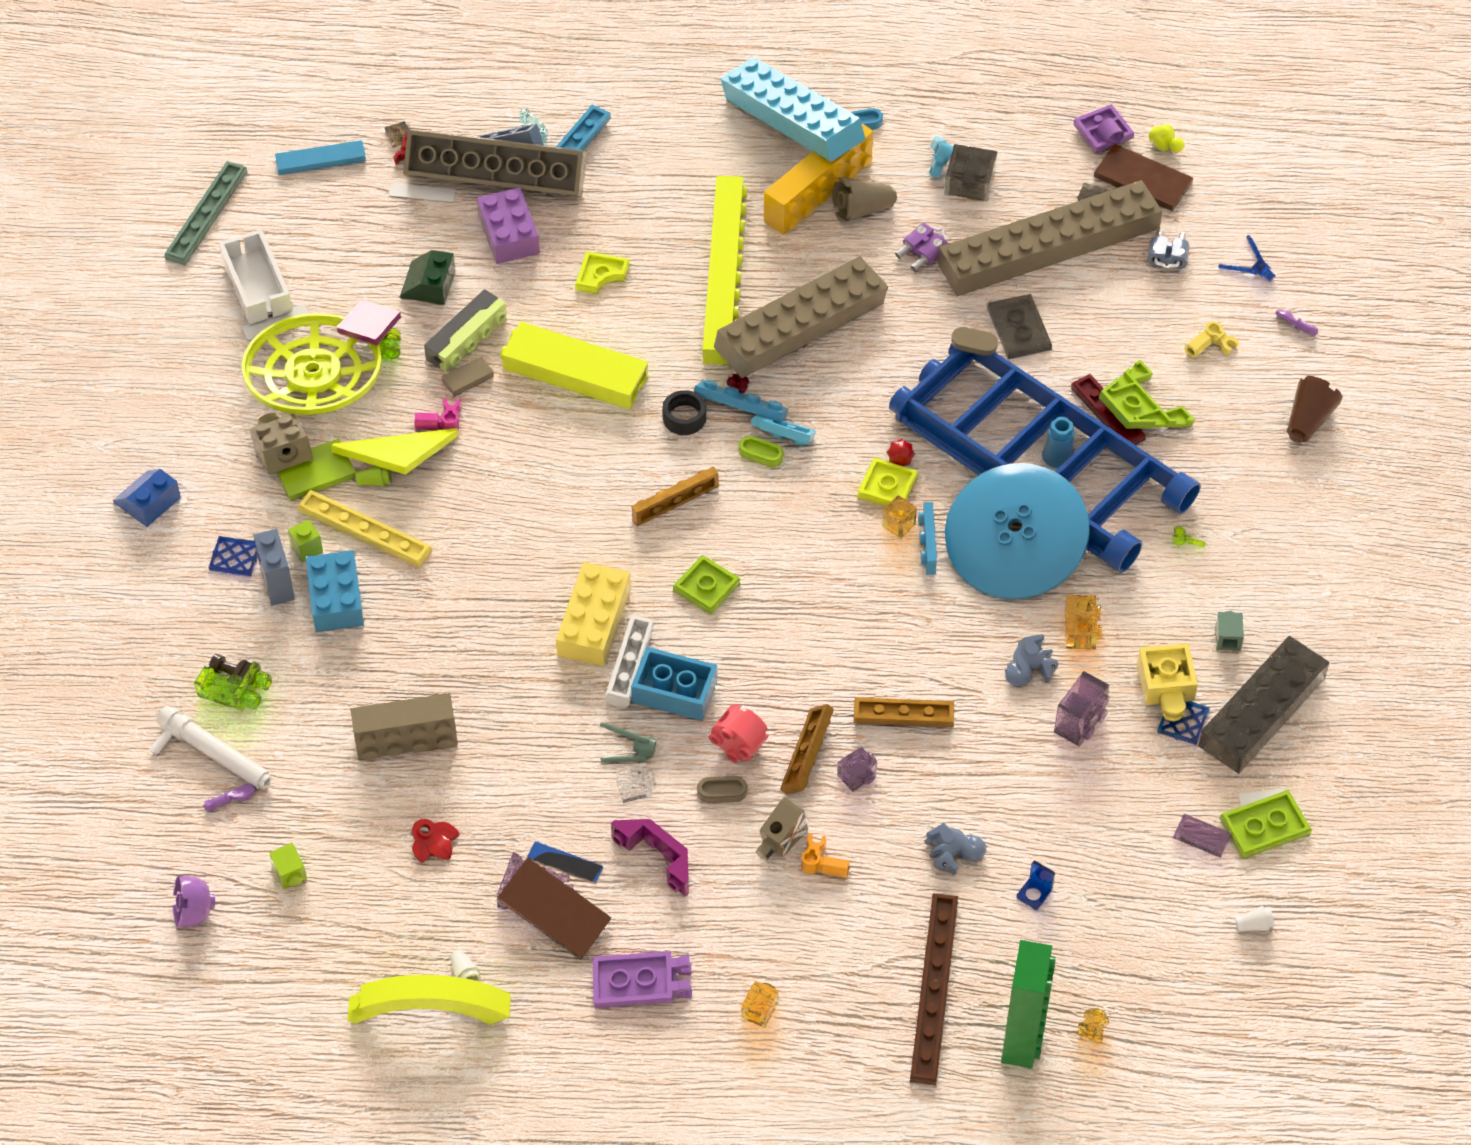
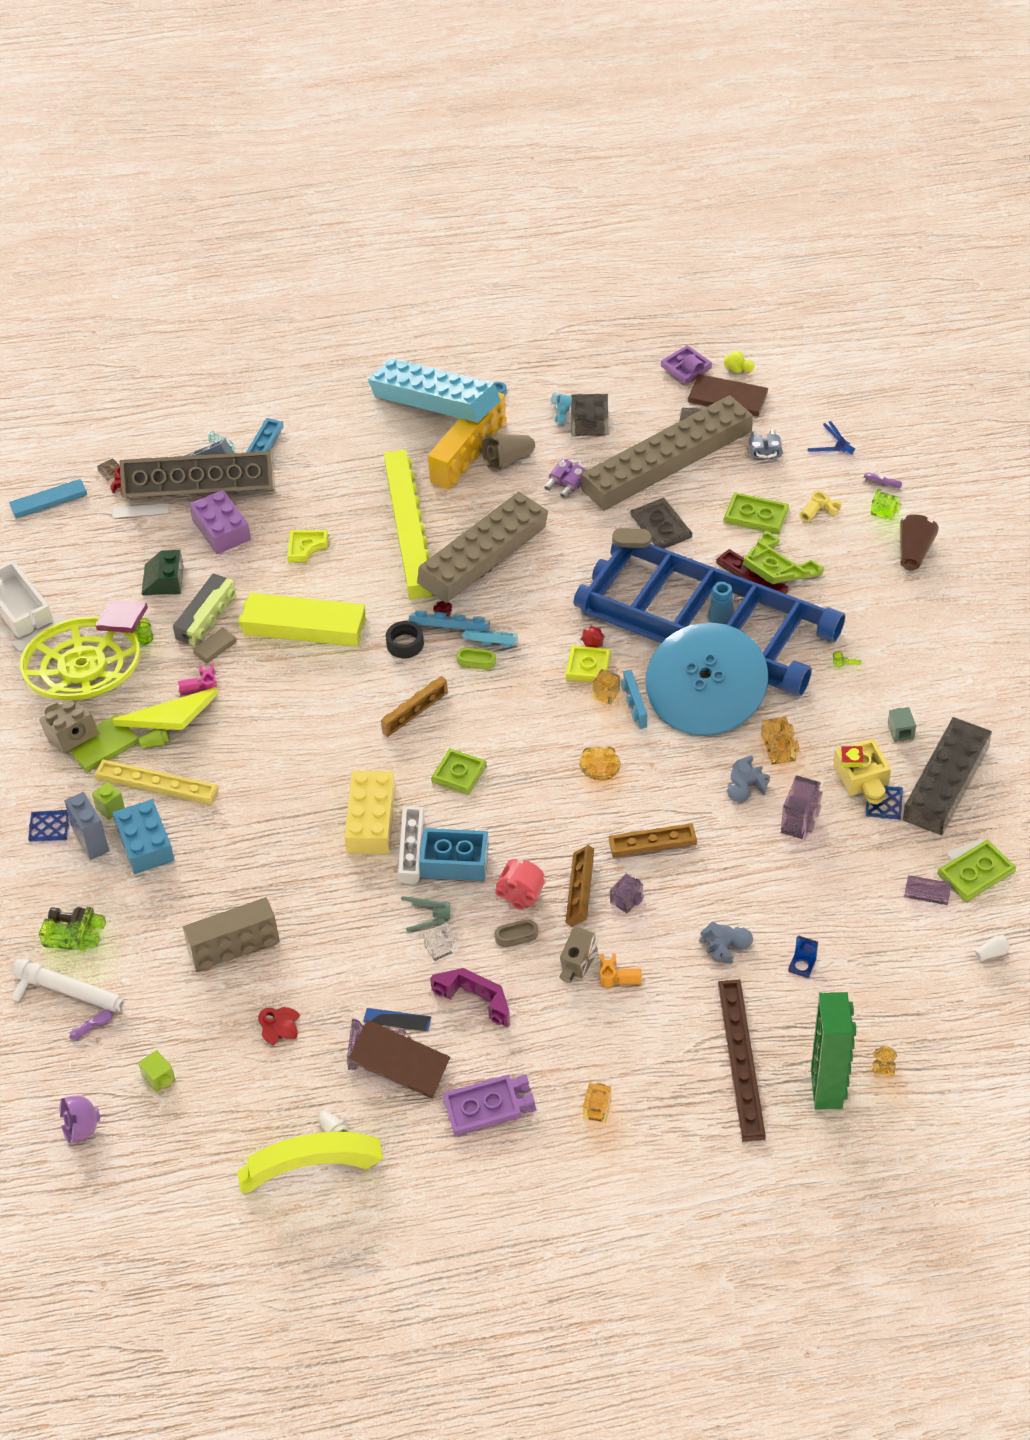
camera: 10 degrees left, 5 degrees down
(868, 607) = (599, 763): none -> clear yellow dish
(1135, 334) = (756, 513): none -> lime tile
(1155, 660) = (852, 756): none -> tile
(1289, 354) = (885, 505): none -> clear neon green brick

